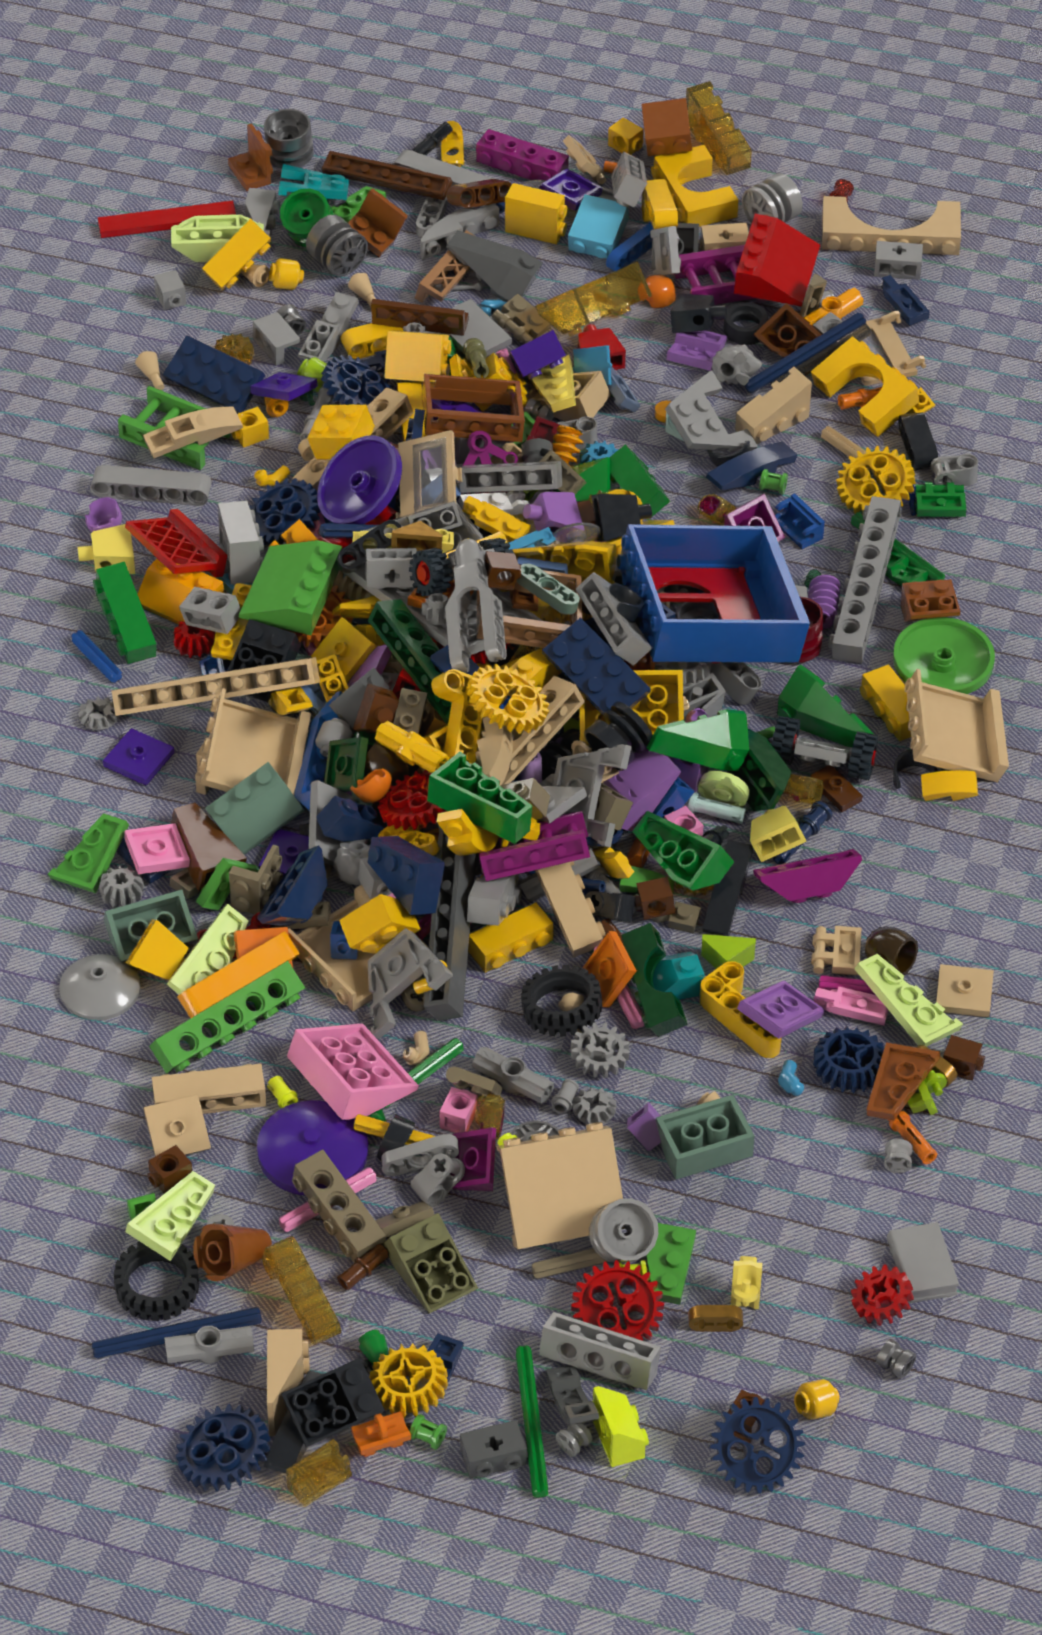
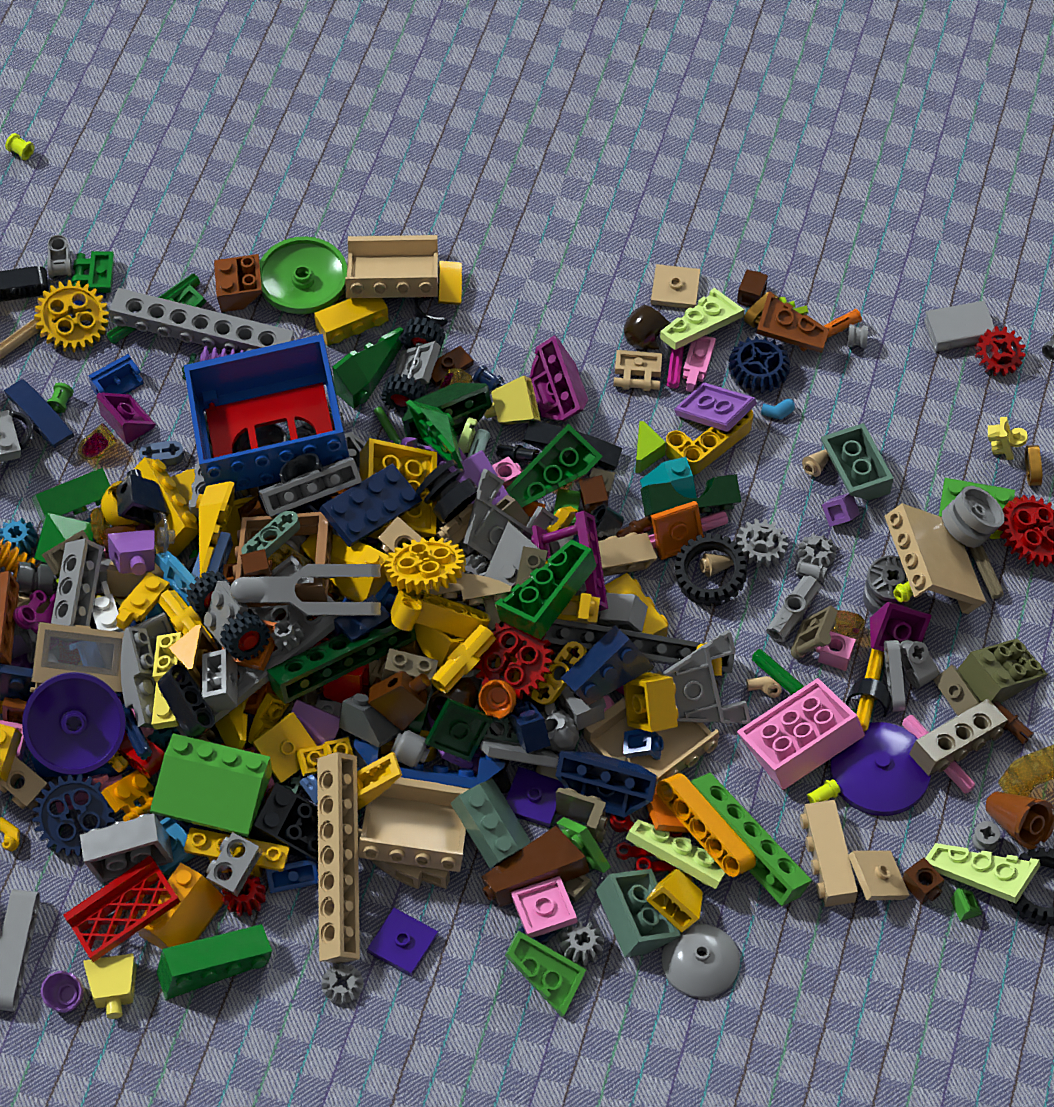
camera: 90 degrees left, 10 degrees up
(96, 656) = (261, 990): blue axle -> none

